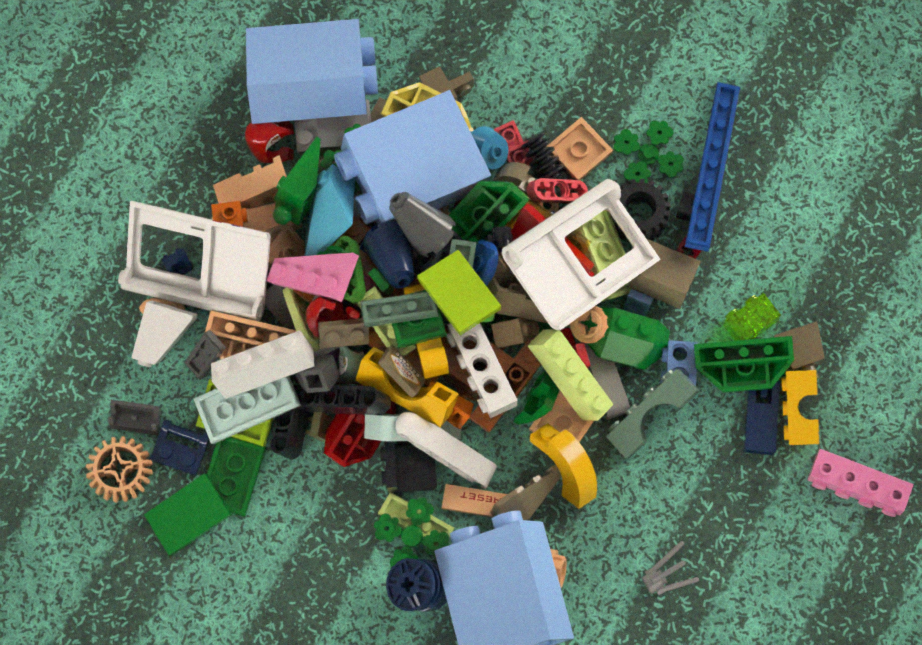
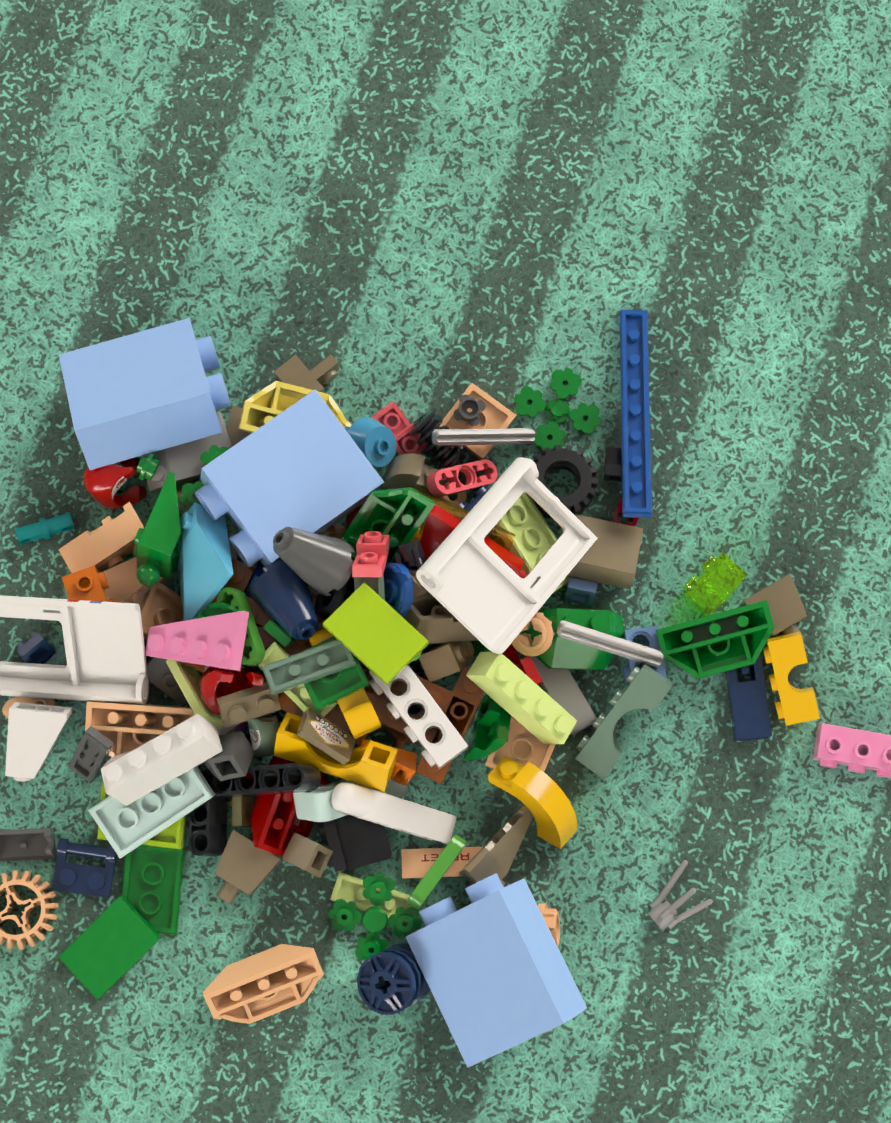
camera: 15 degrees left, 5 degrees up
(205, 167) = (44, 528): none -> teal pin
(300, 130) = (148, 466): none -> green plate
(309, 569) = (264, 984): none -> light nougat wedge
(312, 471) = (243, 867): none -> dark tan torso
(366, 470) = (307, 855): none -> dark tan brick
(469, 230) = (371, 555): none -> coral slope
(471, 506) = (436, 872): none -> bright green beam
(581, 136) = (469, 402): none -> dark grey plate
(581, 160) = (483, 436): none -> light grey axle
(653, 346) = (609, 643): none -> light grey axle

